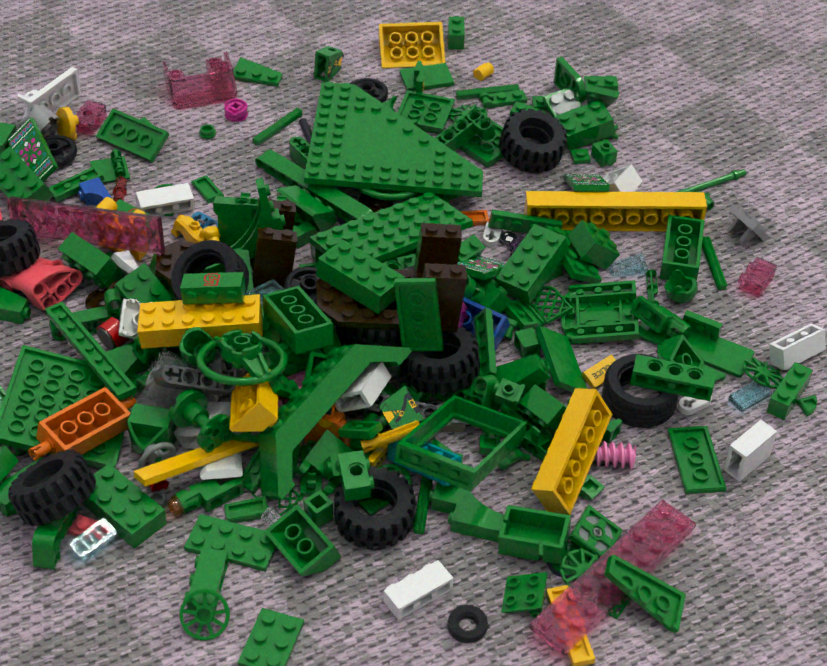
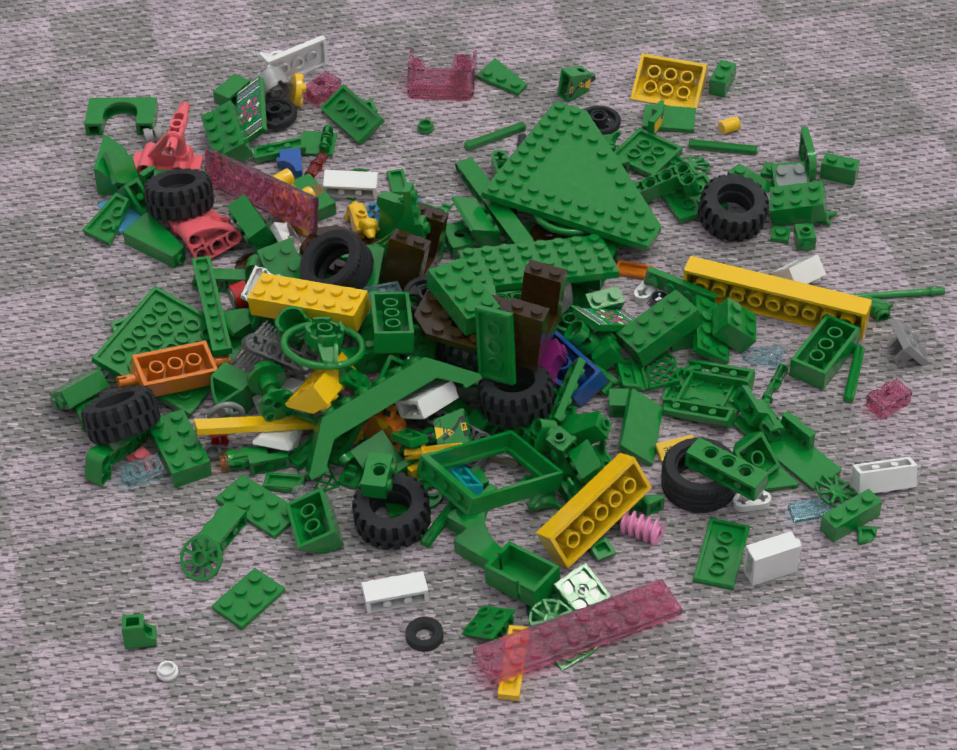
camera: 25 degrees right, 0 degrees up
(213, 288) = (326, 274): green brick -> none
(236, 110) = (462, 111): dark pink wheel -> none
(318, 508) = (342, 498): green brick -> none
(502, 98) = (734, 157): green plate -> none
(586, 182) = (762, 261): green tile -> none
(596, 93) = (830, 180): green wing -> none
(649, 592) = (600, 658): green wing -> none
(681, 287) = (801, 389): green cap -> none

